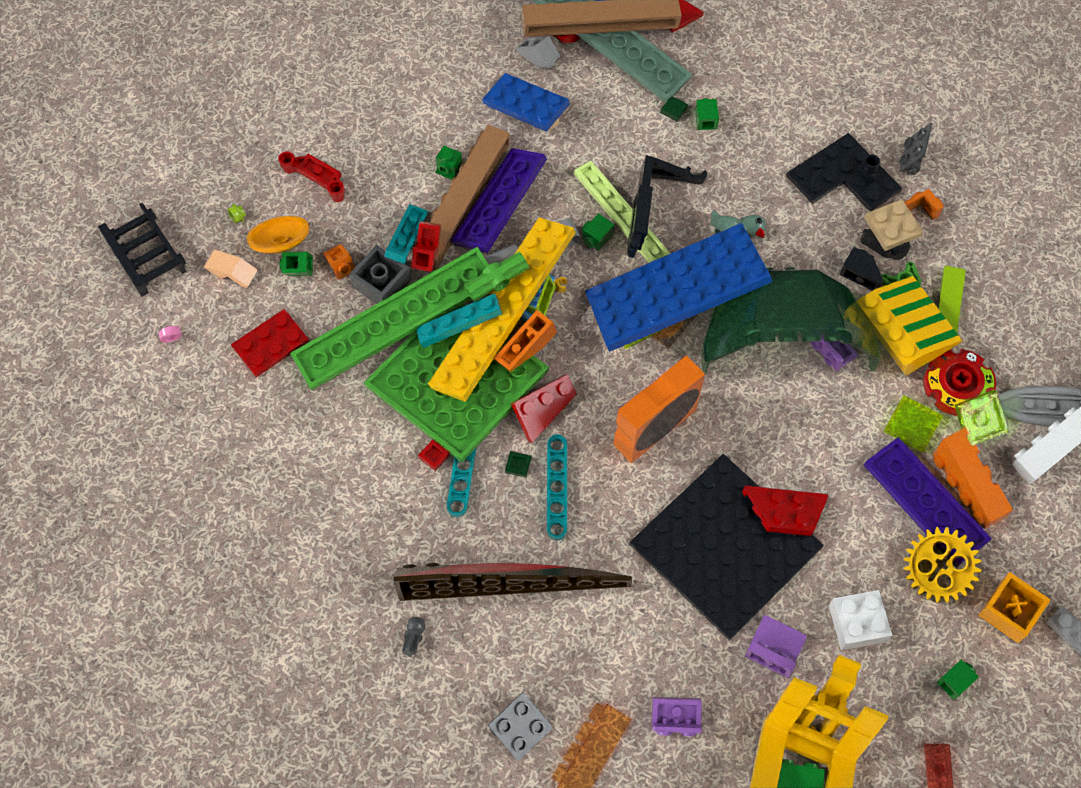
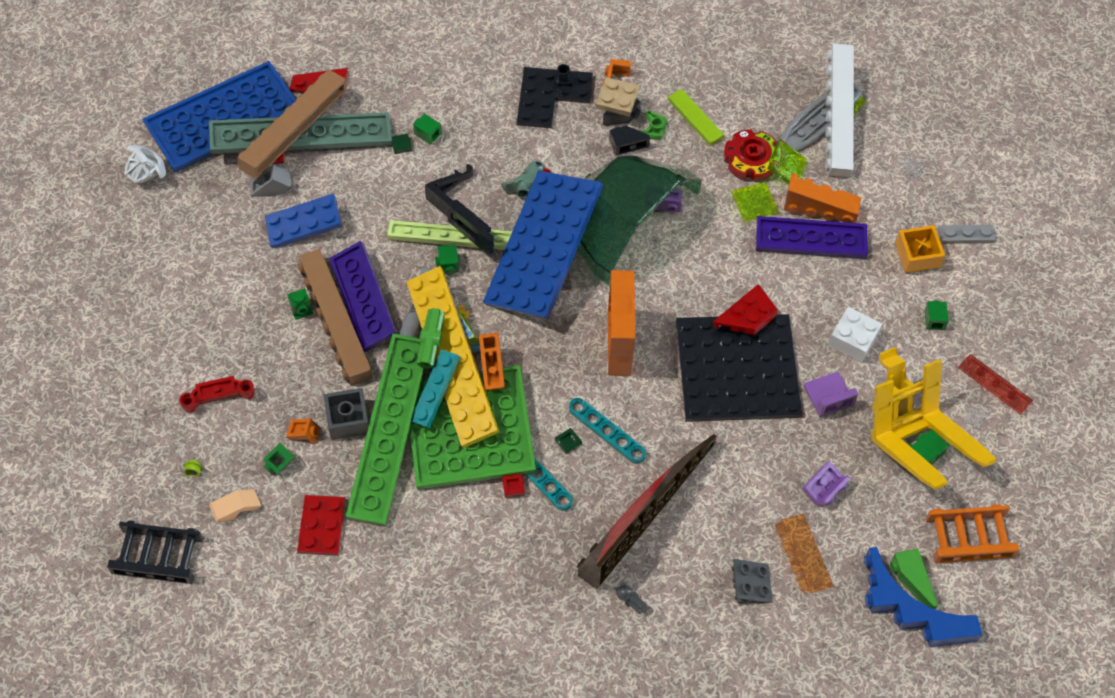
camera: 50 degrees left, 5 degrees down
(170, 334) = (247, 585): bright pink tile -> none
(278, 234) = (243, 451): light orange dish -> none
(406, 234) = (332, 370): teal plate -> none
(427, 246) = (356, 365): red slope -> none
(542, 406) = (542, 392): wing -> none
(908, 324) = (691, 146): yellow slope -> none
(915, 150) = (576, 42): dark grey hinge -> none
(960, 578) = (878, 261): yellow gear -> none

